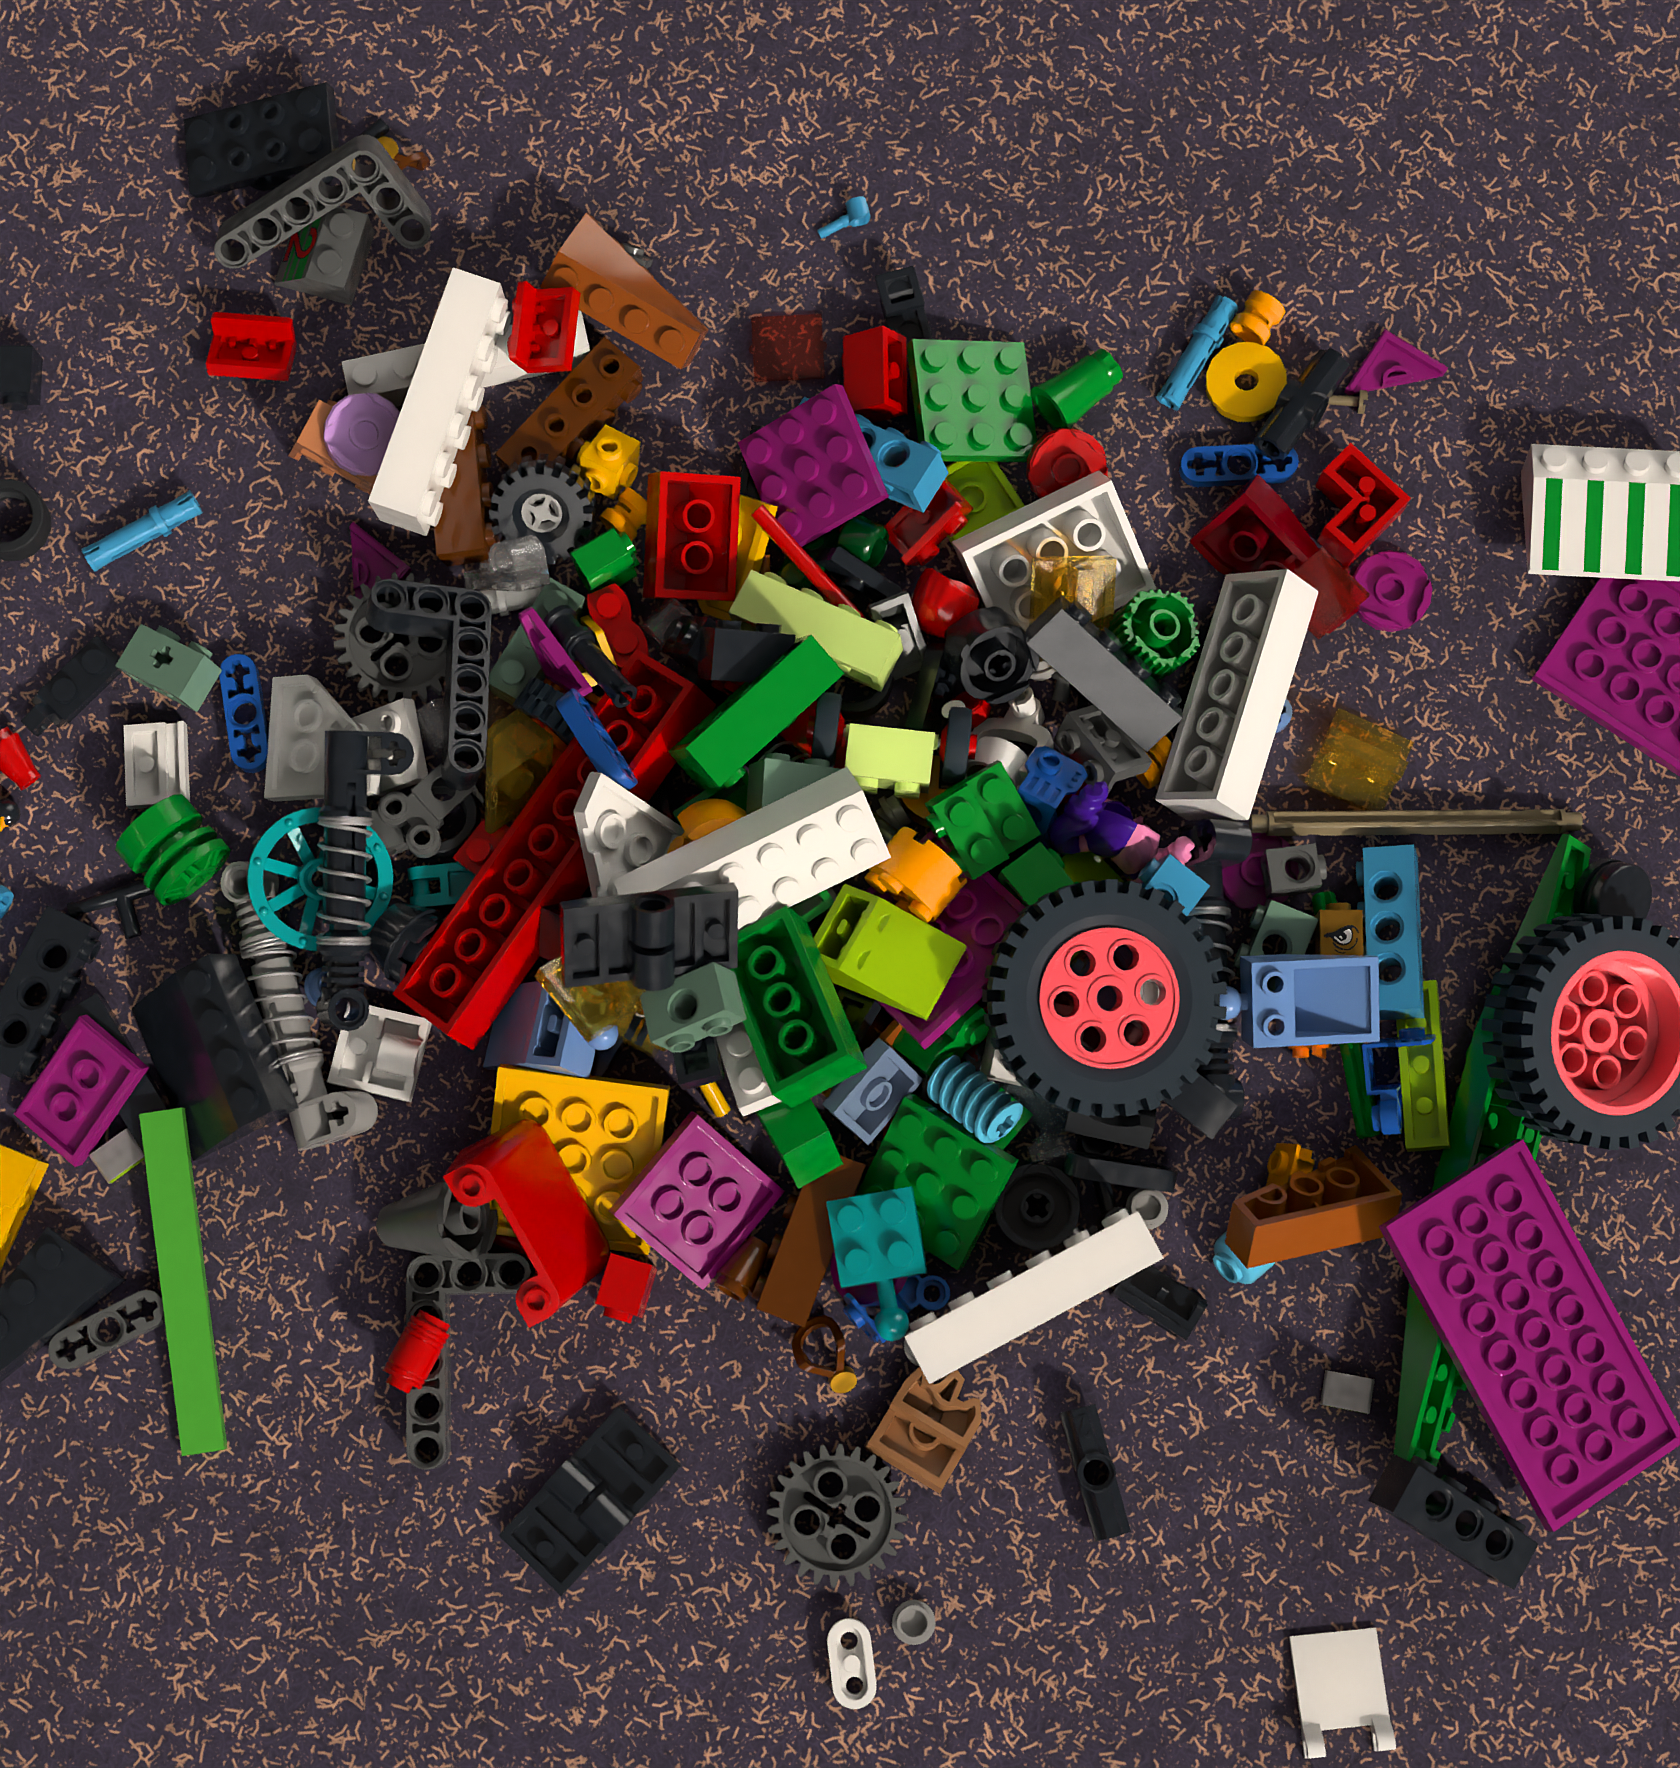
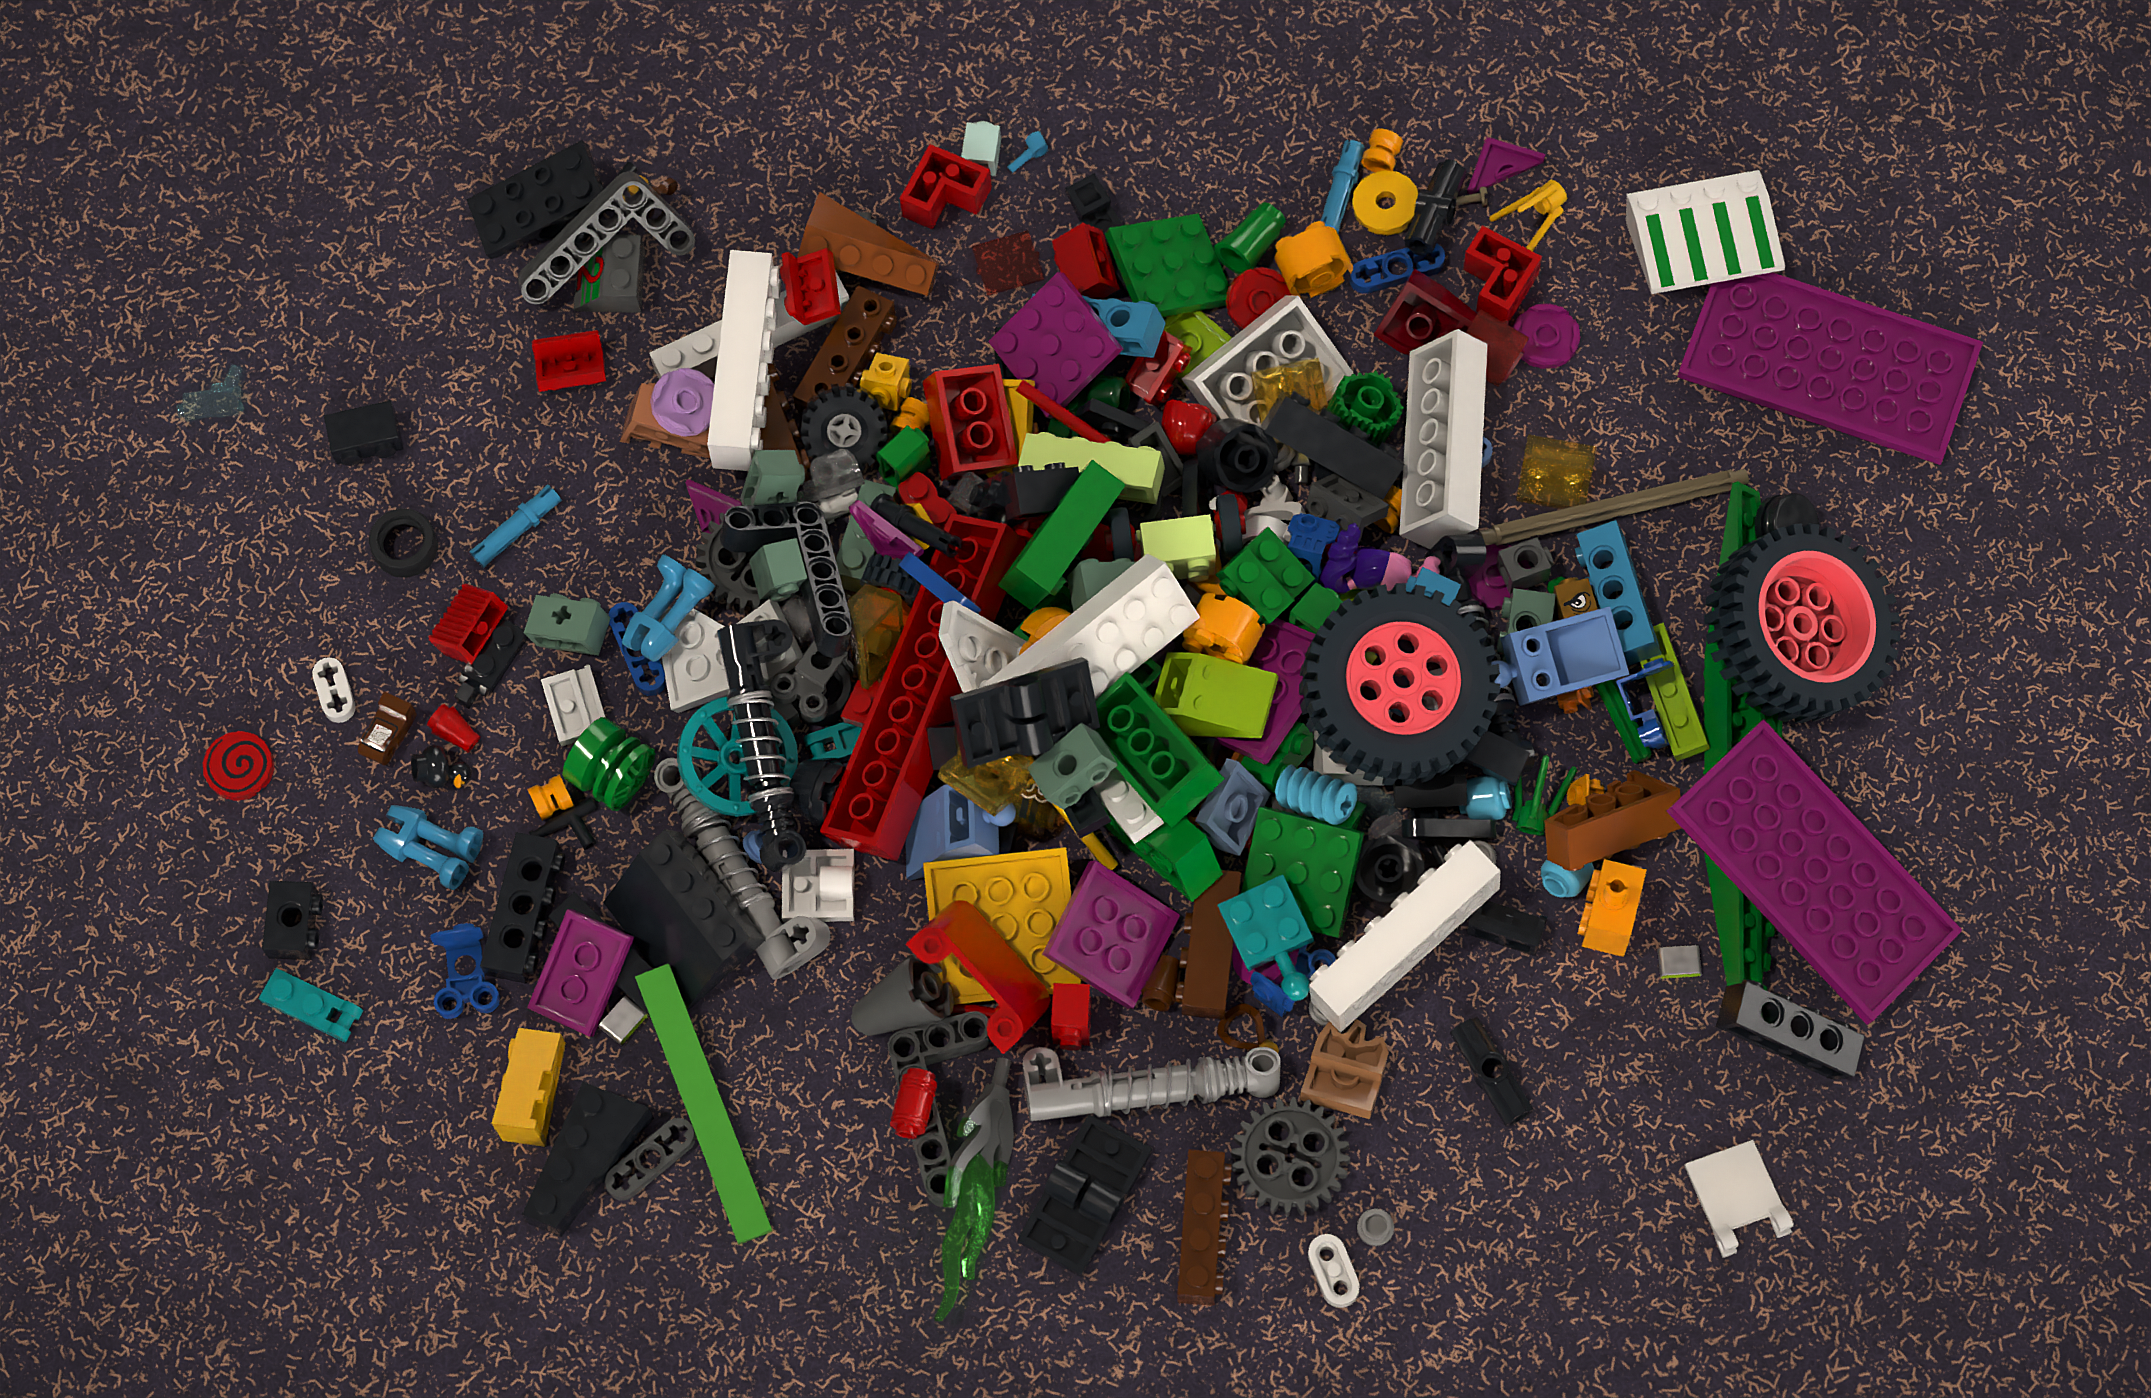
camera: 10 degrees left, 10 degrees down
(57, 637) = (468, 623): none -> red brick
(99, 870) = (542, 800): none -> light orange wheel
(254, 696) = (644, 628): none -> dark azure piece
(420, 668) = (778, 570): none -> sand green brick
(442, 555) = (773, 478): none -> sand green brick
(493, 1400) = (976, 1169): none -> clear neon green piece
(686, 1393) = (1104, 1093): none -> light grey piece
(712, 1575) = (1201, 1227): none -> reddish brown brick
(732, 230) = (944, 179): none -> red brick
(791, 201) = (982, 144): none -> light aqua brick
(1141, 435) = (1313, 260): none -> light orange brick
(1174, 1143) = (1486, 798): none -> medium azure head
(1223, 1174) = (1532, 816): none -> green plant
(1286, 1315) = (1614, 905): none -> light orange brick
(1432, 423) = (1544, 200): none -> yellow plant

